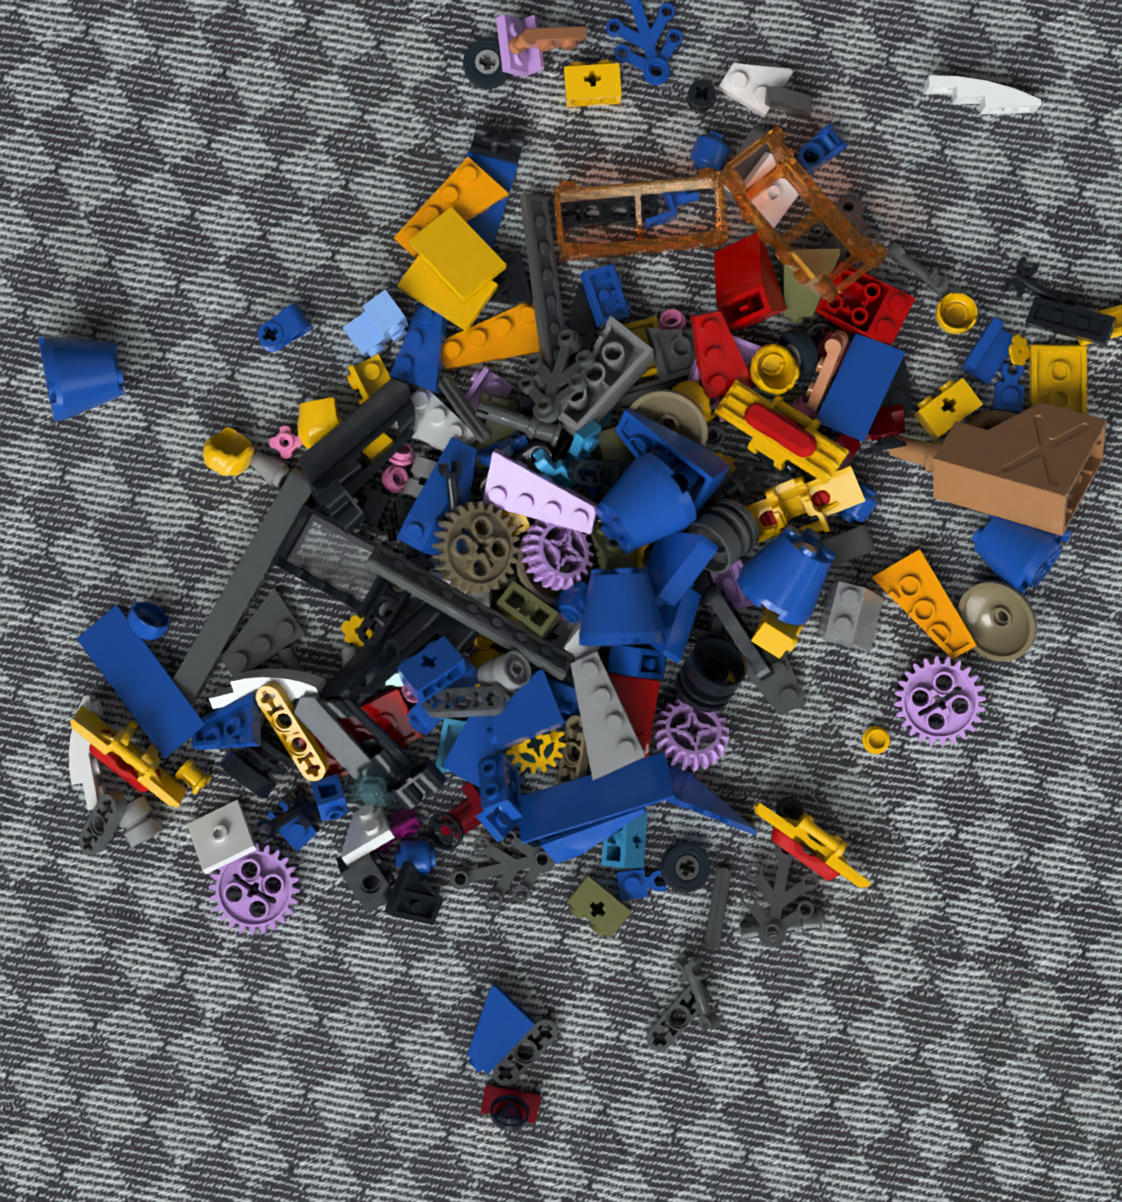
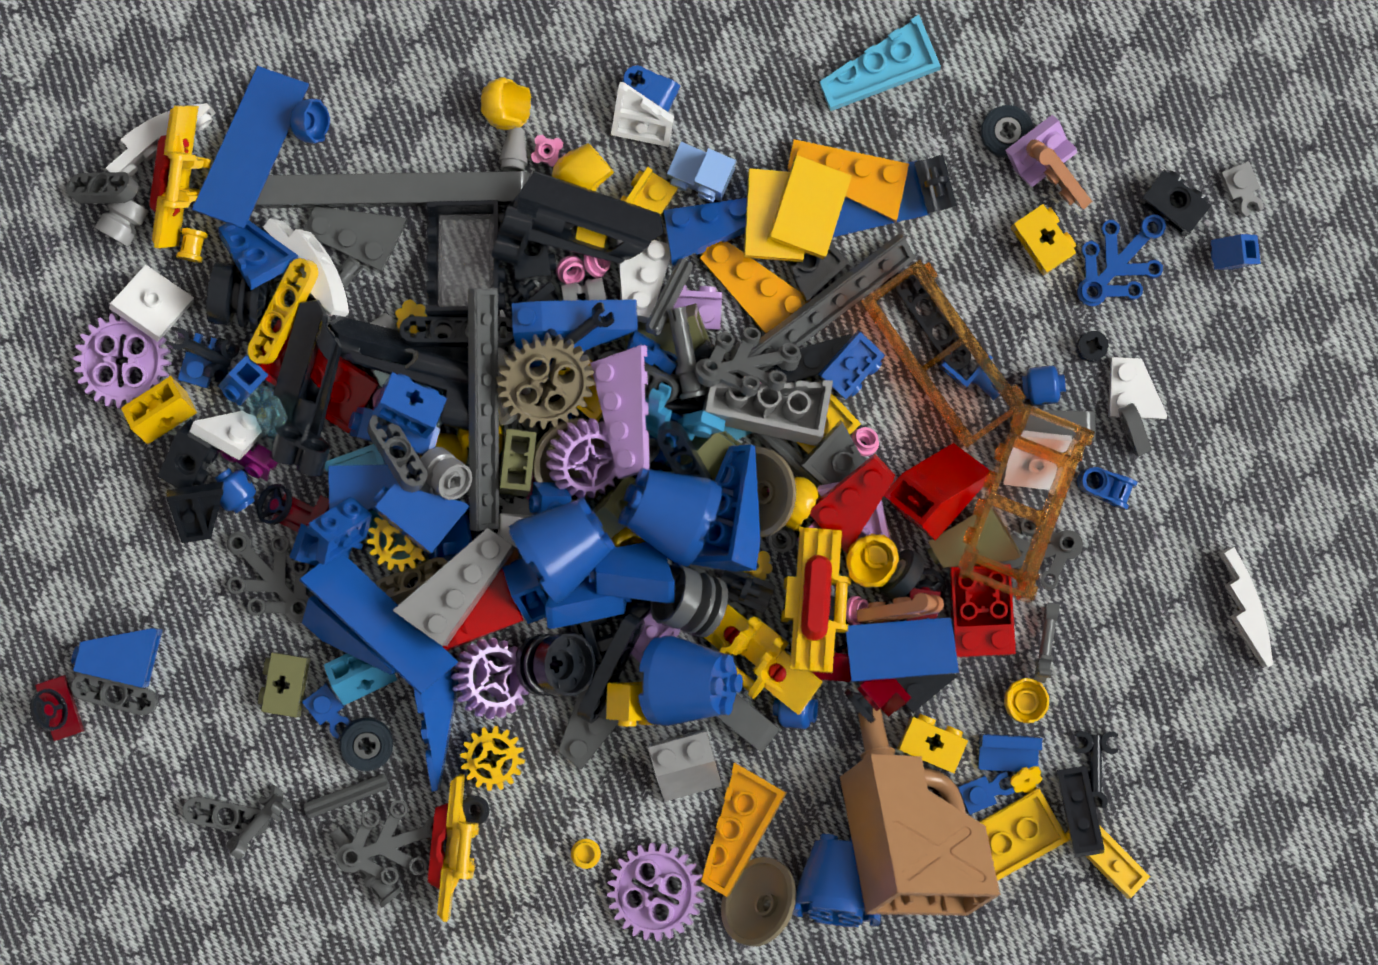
camera: 65 degrees right, 0 degrees up
(304, 350) = (640, 118): none -> white wing
(313, 881) = (159, 410): none -> yellow brick
(377, 123) = (893, 62): none -> medium azure wing
(758, 757) = (496, 771): none -> yellow gear

